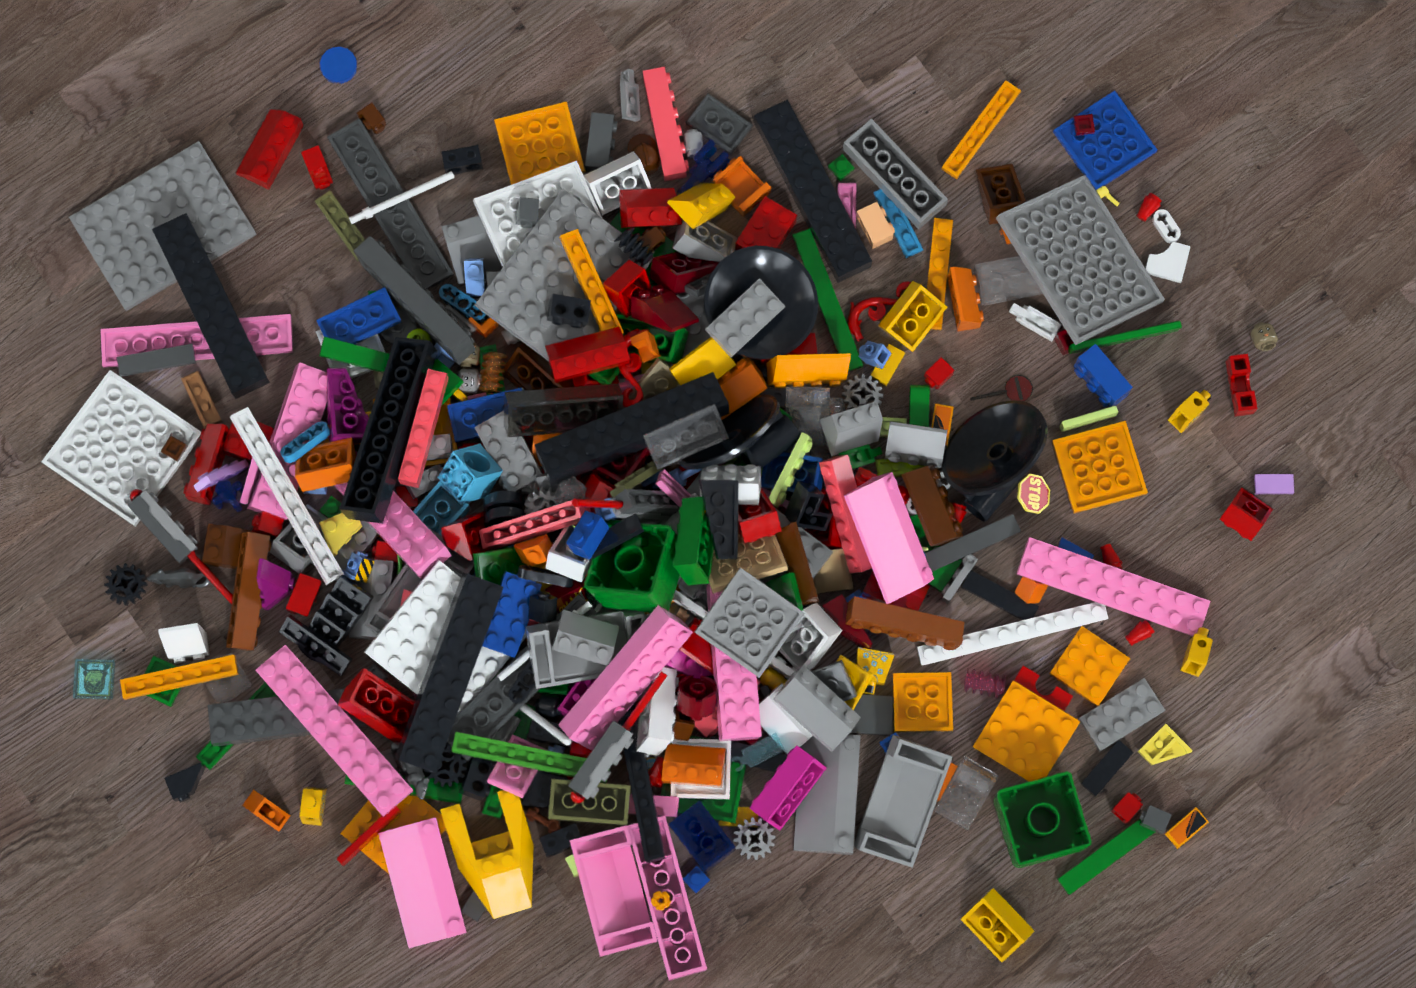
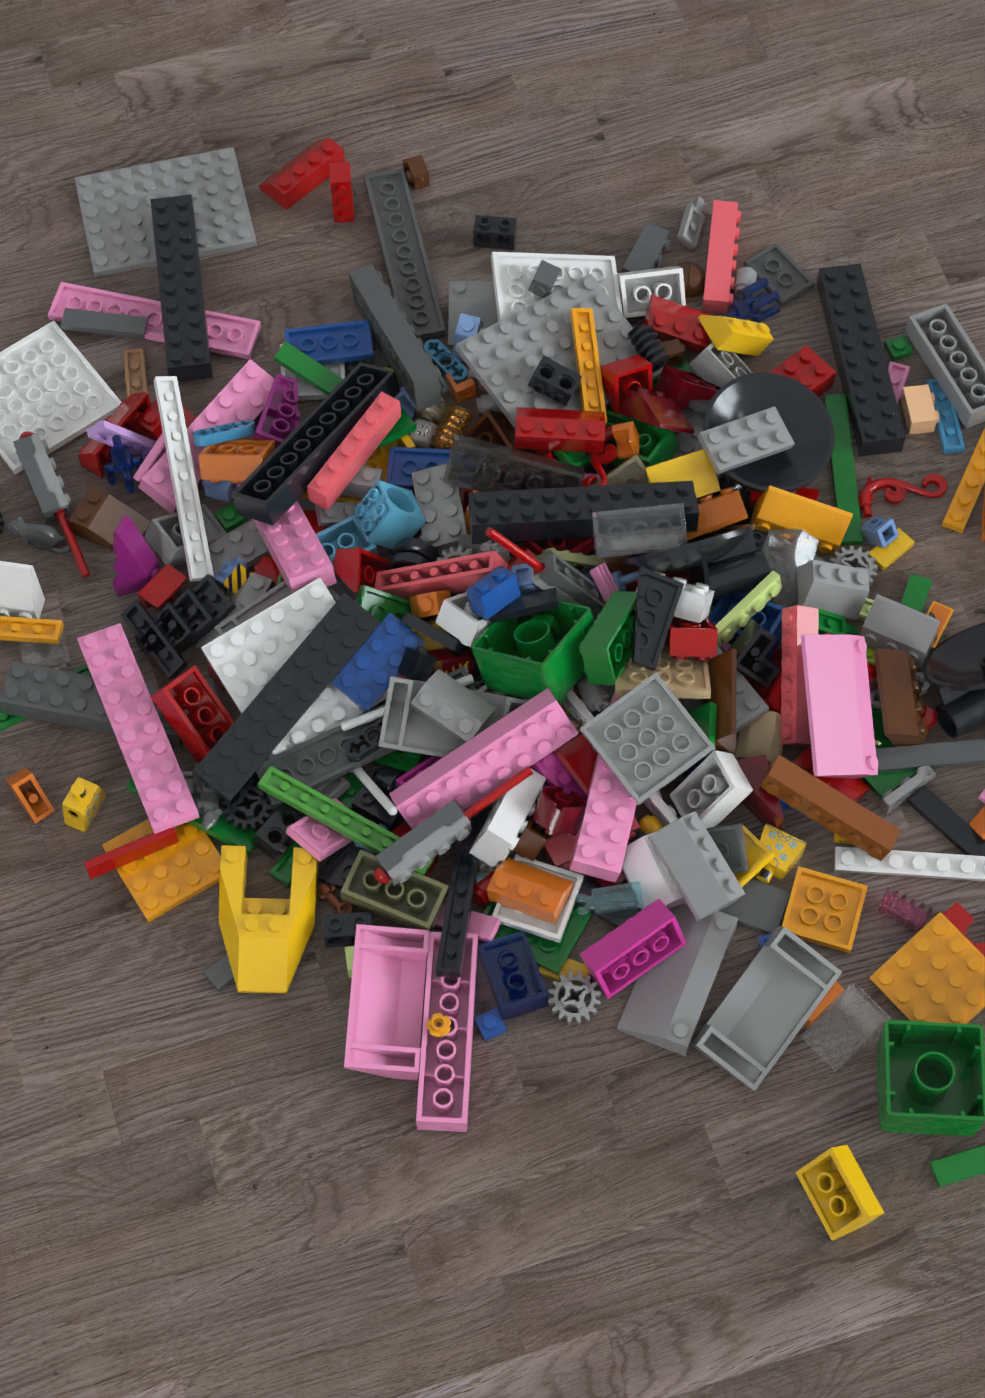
camera: 20 degrees right, 15 degrees down
(174, 448) = (86, 409): reddish brown tile -> none
(246, 595) = (99, 574): dark orange brick -> none
(267, 524) = (152, 506): red brick -> none
(338, 65) = (401, 120): blue tile -> none
(339, 531) = (229, 534): light yellow wing -> none
(340, 221) = (345, 250): olive plate -> none
(369, 212) = (378, 250): white bar -> none
(422, 882) = (171, 924): bright pink slope -> none
(538, 141) = (582, 231): light orange plate -> none
(743, 185) = (786, 332): orange panel -> none
(912, 316) = (935, 505): yellow slope -> none
(938, 373) = (947, 572): red brick -> none

